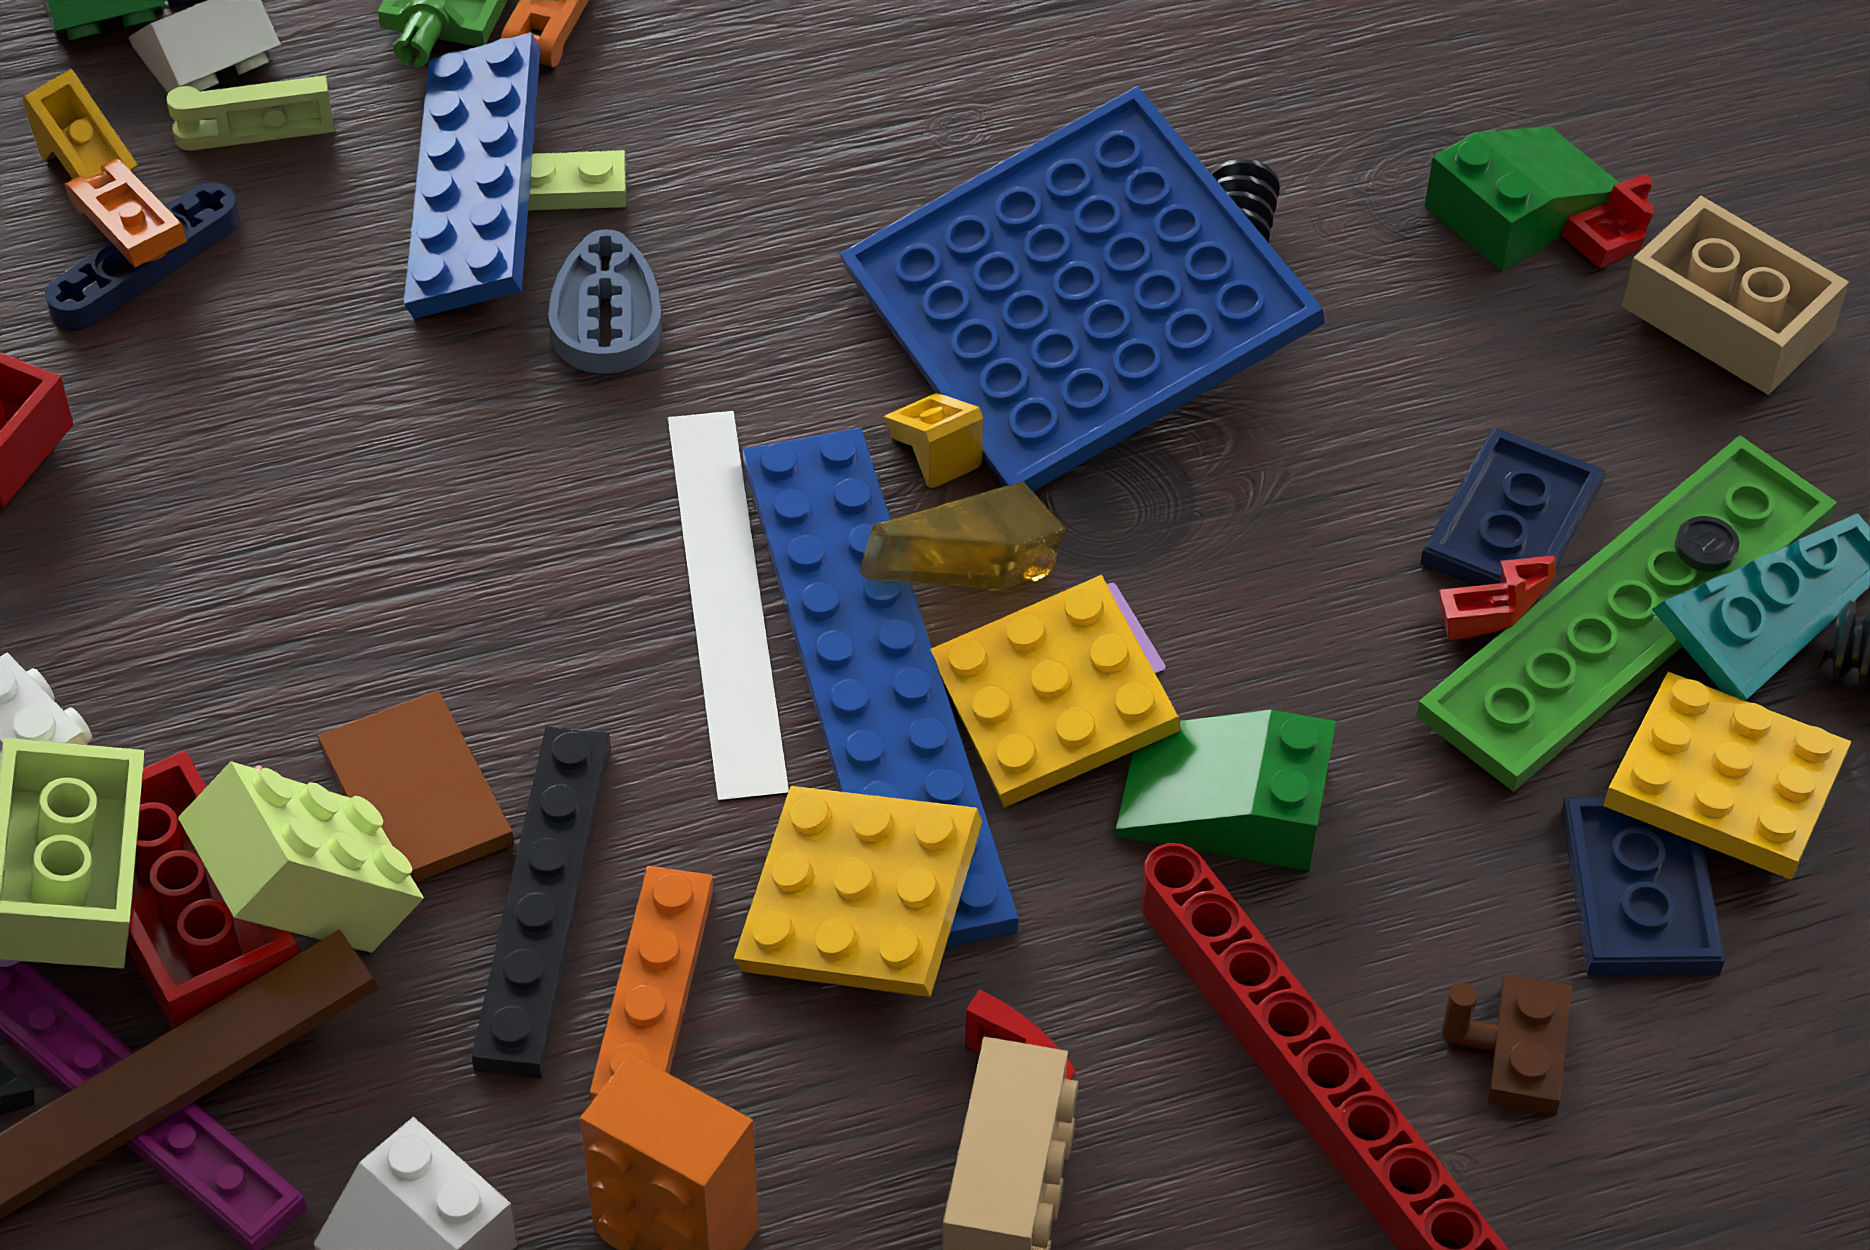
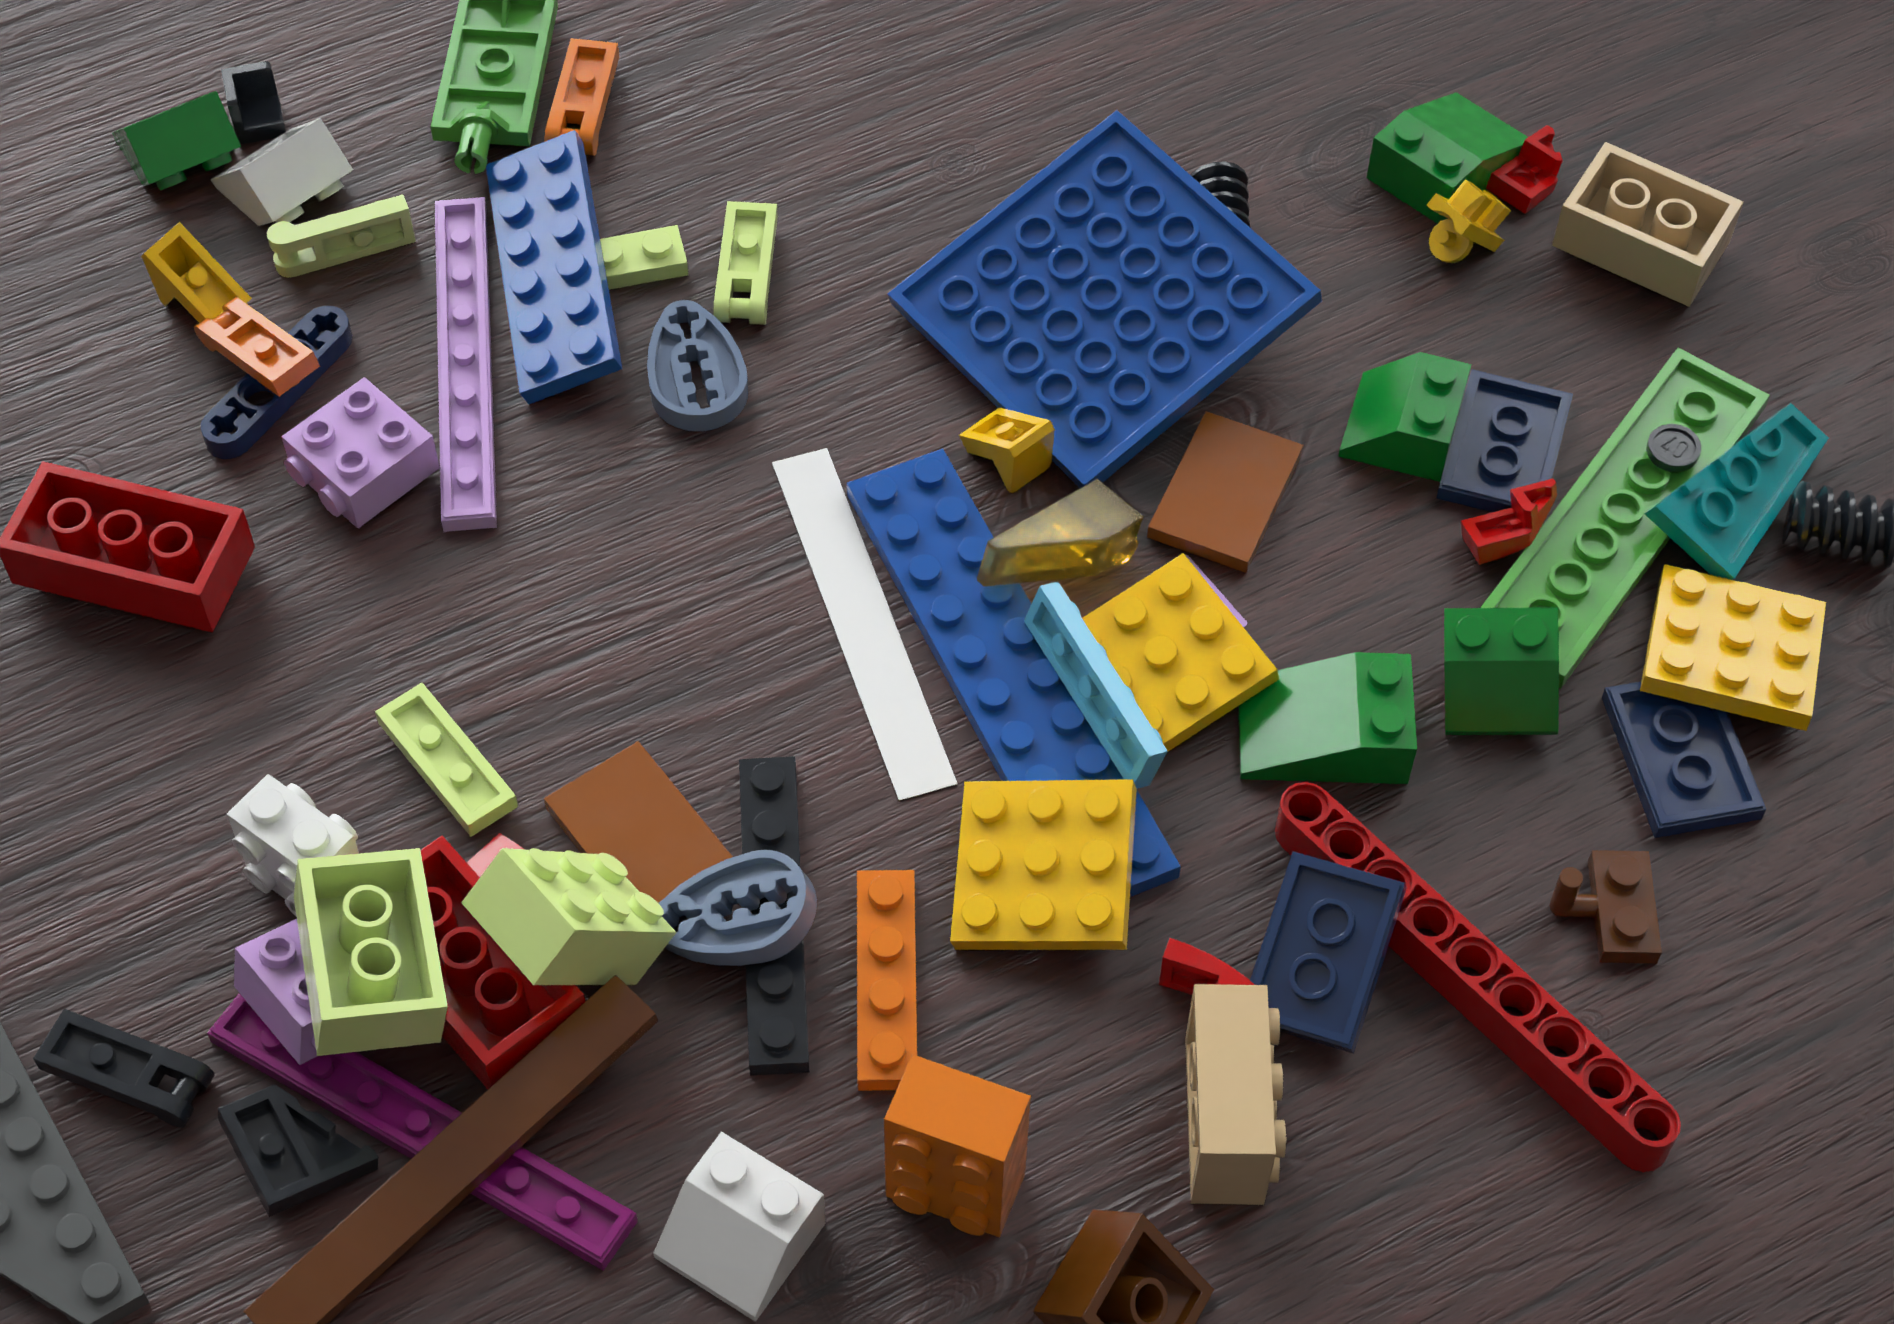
camera: 10 degrees left, 5 degrees up
(209, 340) = (359, 453): none -> lavender brick
(221, 677) = (446, 759): none -> yellowish green plate
(352, 268) = (464, 366): none -> lavender tile
(502, 915) = (747, 937): none -> sand blue piece
(690, 200) = (745, 261): none -> yellowish green plate
(963, 703) = (1095, 685): none -> medium azure plate
(1159, 1033) = (1327, 948): none -> dark blue tile
(1174, 520) = (1225, 491): none -> dark orange tile
(1405, 465) = (1407, 415): none -> green slope
(1440, 756) = (1501, 671): none -> green slope
(1526, 261) = (1471, 218): none -> yellow hips

